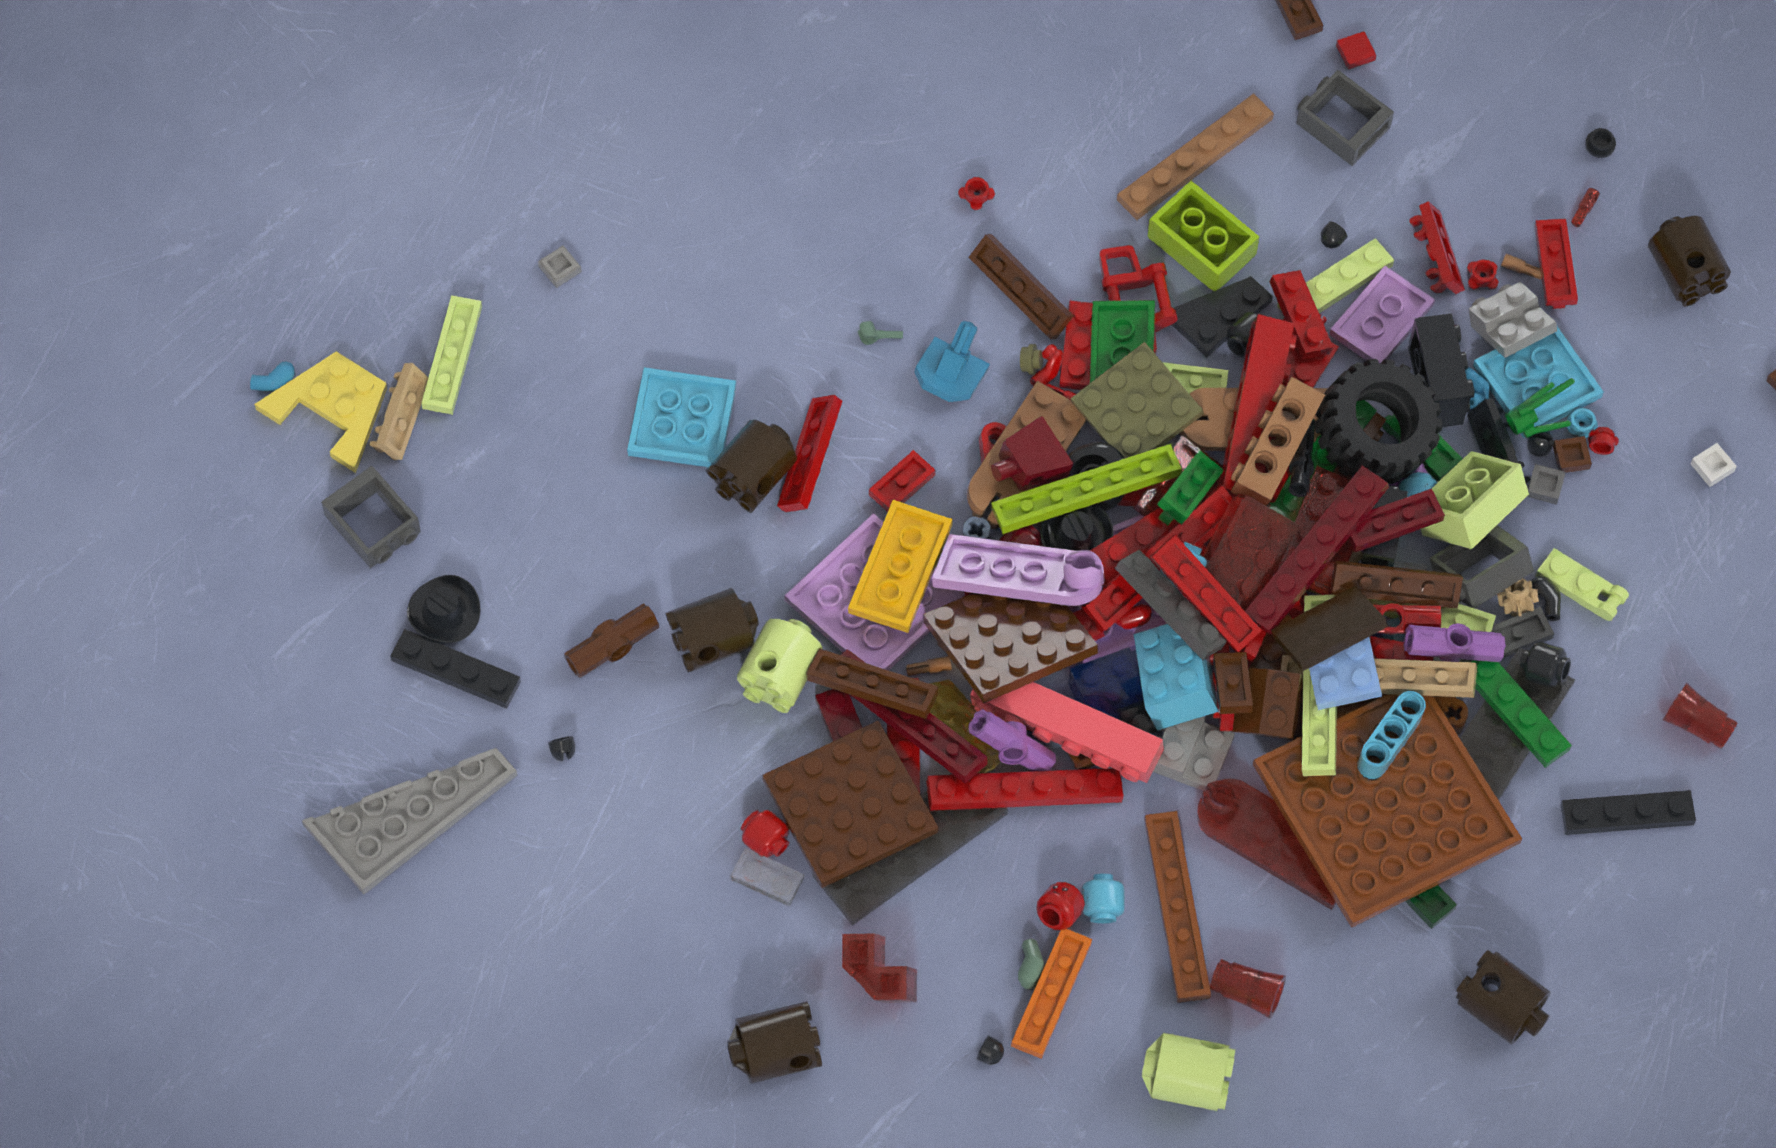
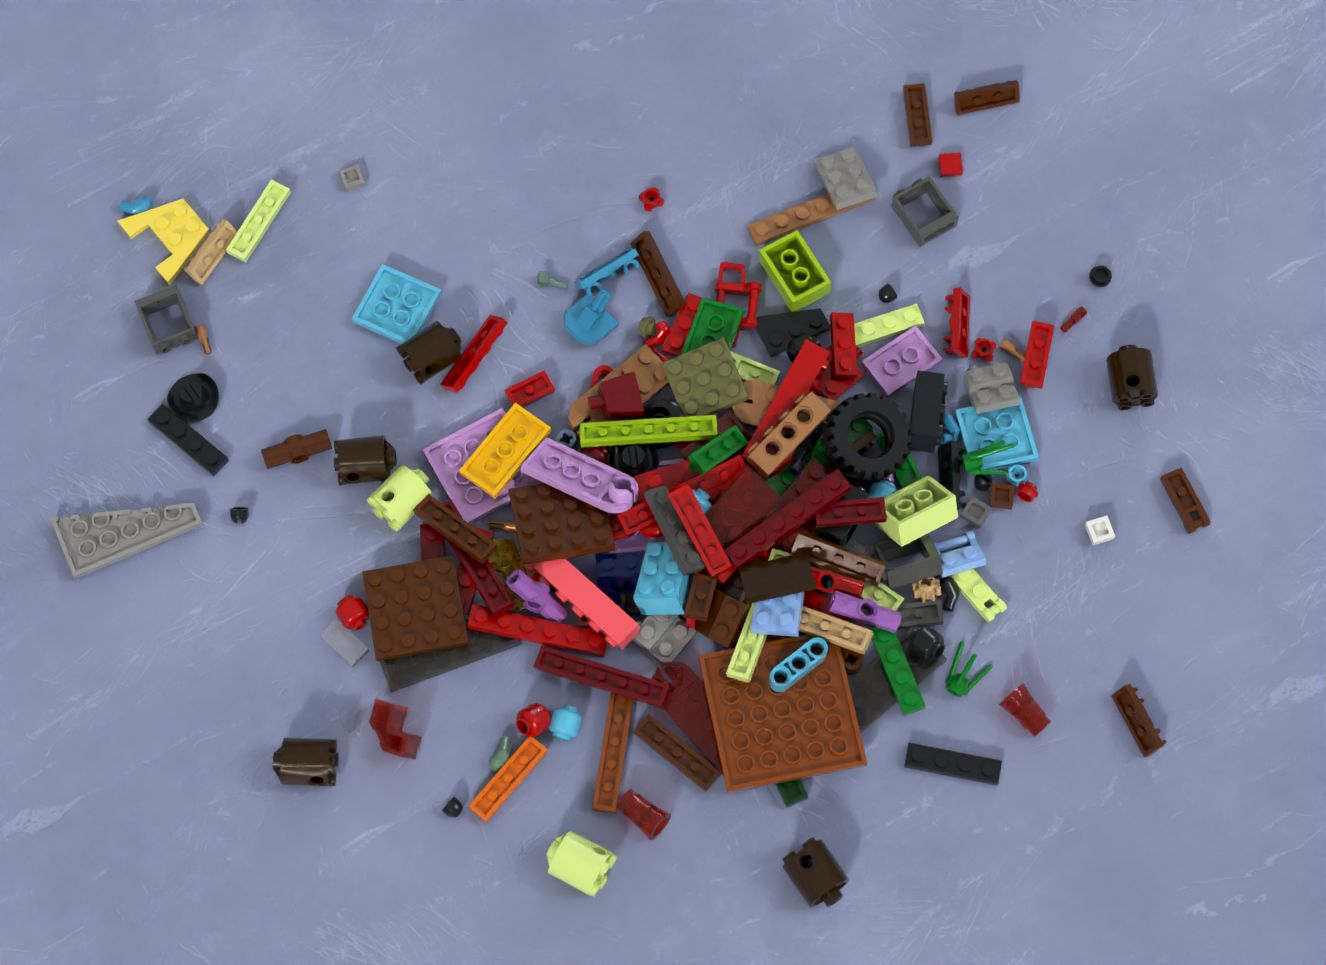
camera: 20 degrees right, 5 degrees up
(430, 531) = (203, 338): none -> medium nougat pin
(952, 299) = (607, 270): none -> dark azure plate
(1133, 824) = (602, 677): none -> dark red plate
(1227, 100) = (845, 178): none -> light grey plate
(1264, 897) = (677, 753): none -> reddish brown plate
(1552, 545) = (962, 558): none -> light blue plate
(1600, 709) = (958, 684): none -> green plant

